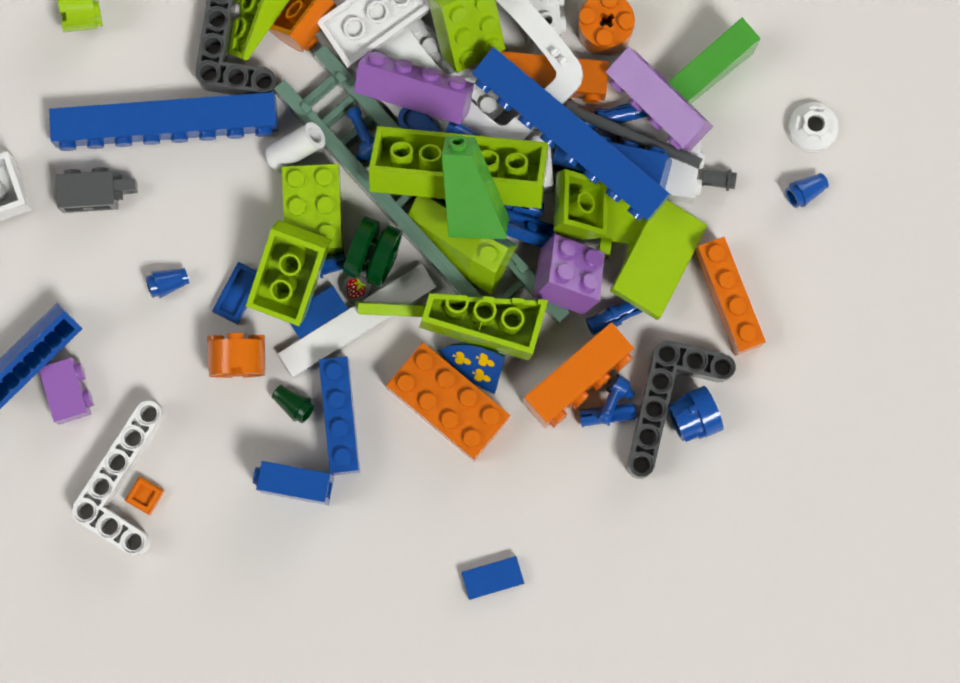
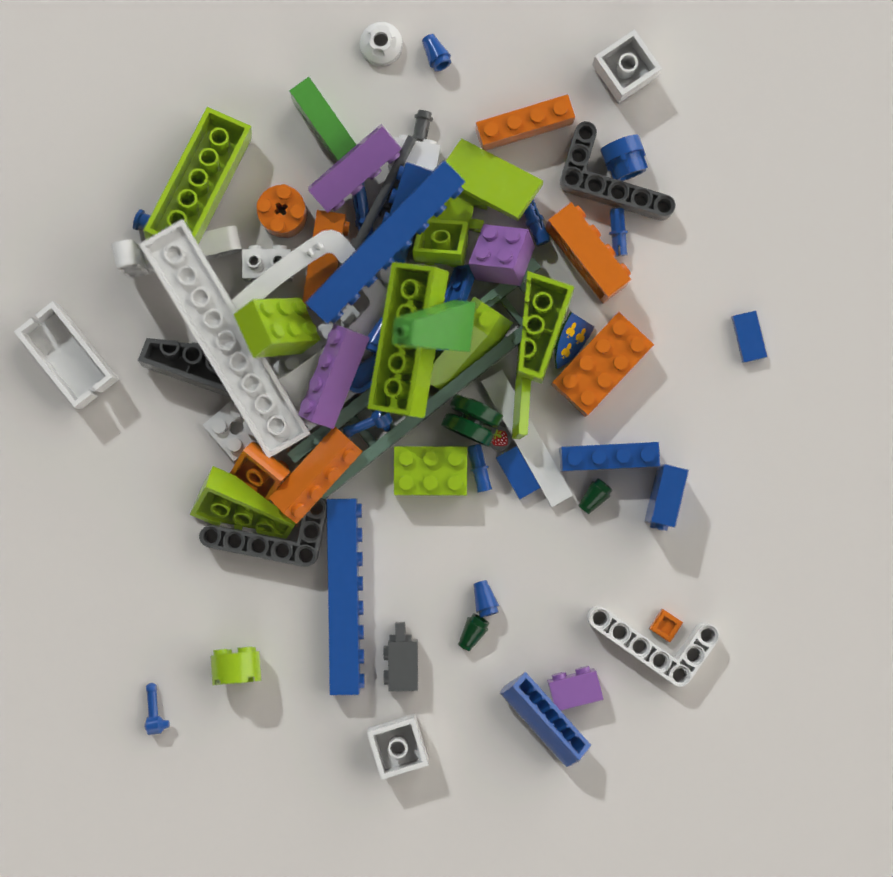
camera: 85 degrees left, 5 degrees up
(128, 270) = (473, 631): none -> dark green cone
(235, 294) = (497, 539): blue tile -> none
(236, 356) = (555, 541): orange brick -> none
(288, 272) = (489, 491): lime brick -> none
(295, 146) = (376, 482): white brick -> none
(300, 76) = (315, 475): none -> orange brick
(618, 388) = (600, 223): blue piece -> none
(806, 411) = (626, 66): none -> white brick

